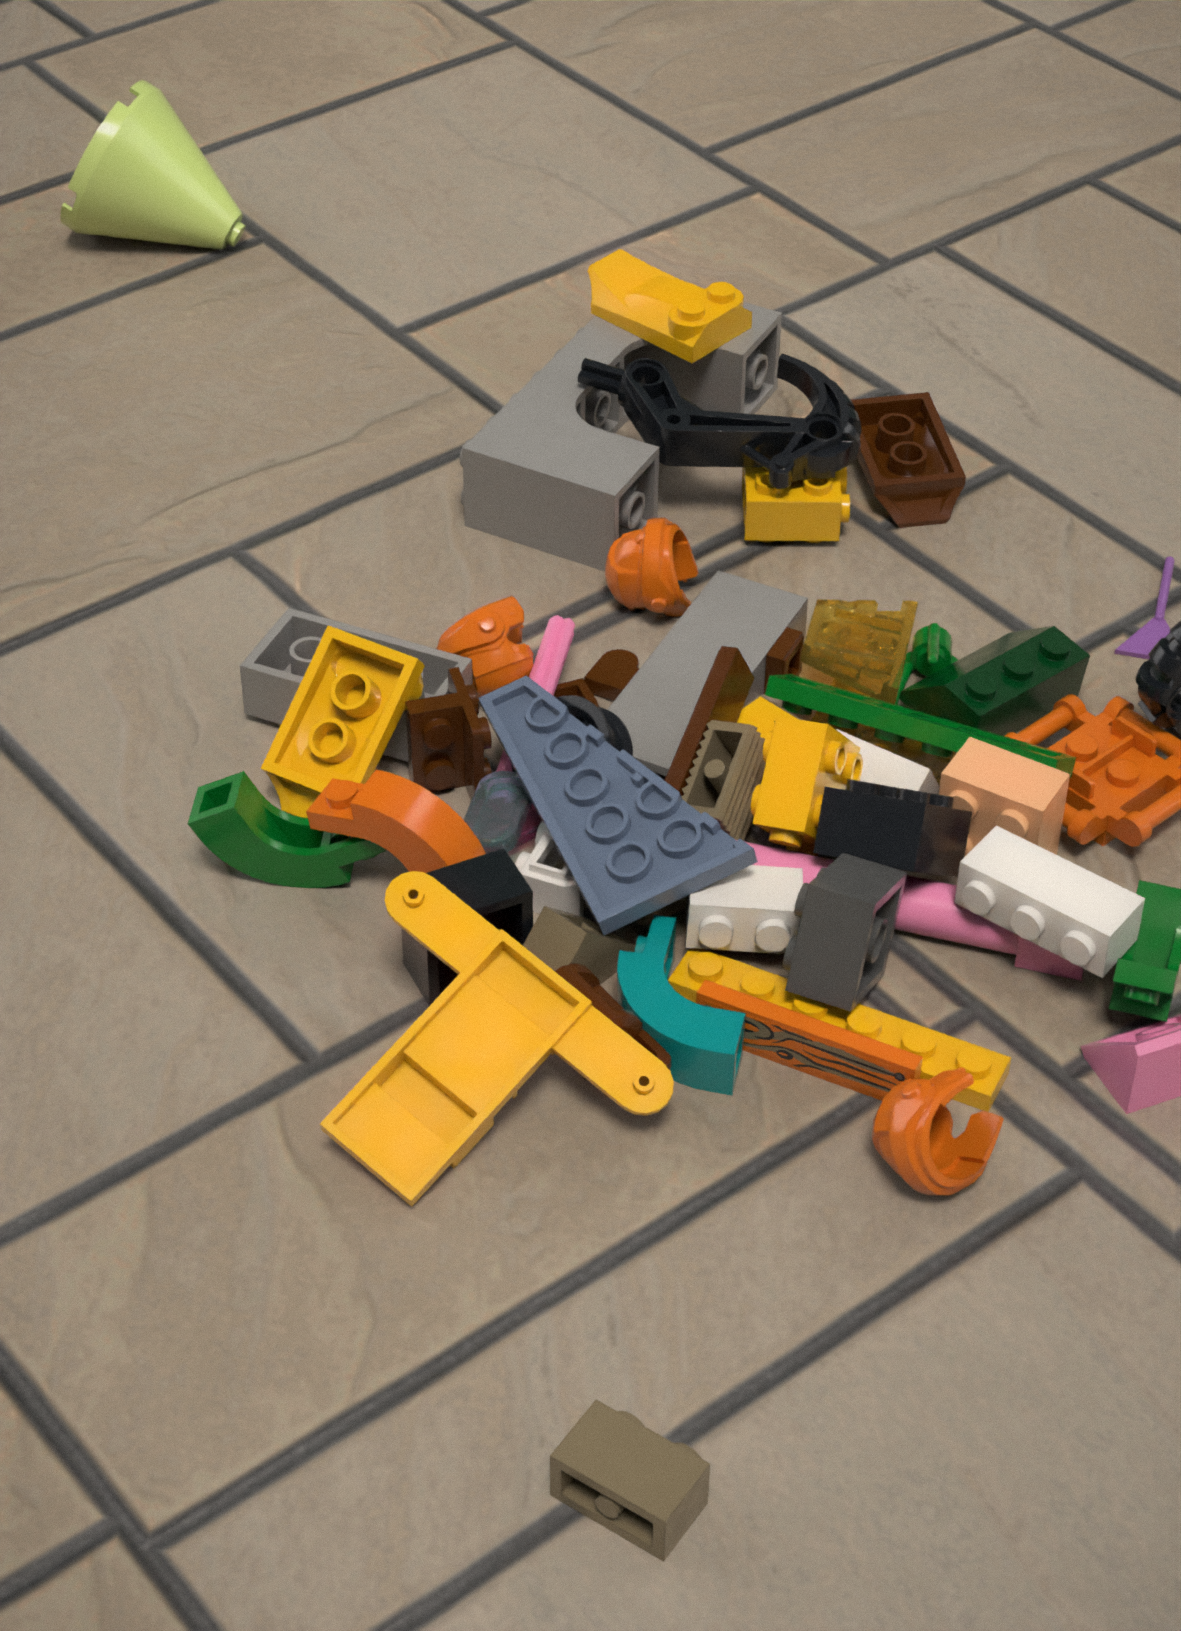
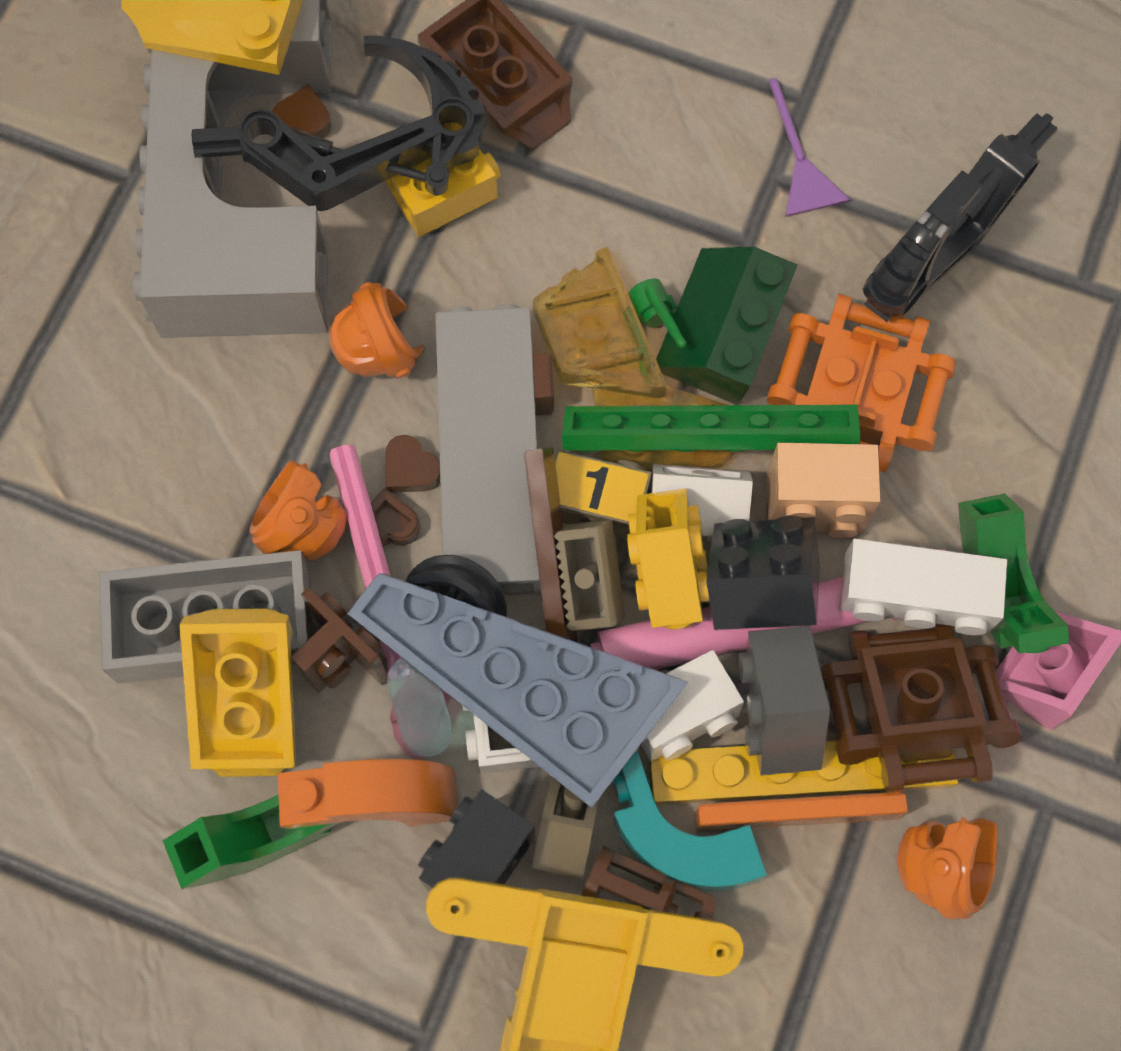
camera: 30 degrees left, 30 degrees up
(987, 1004) = (920, 706): none -> reddish brown brick

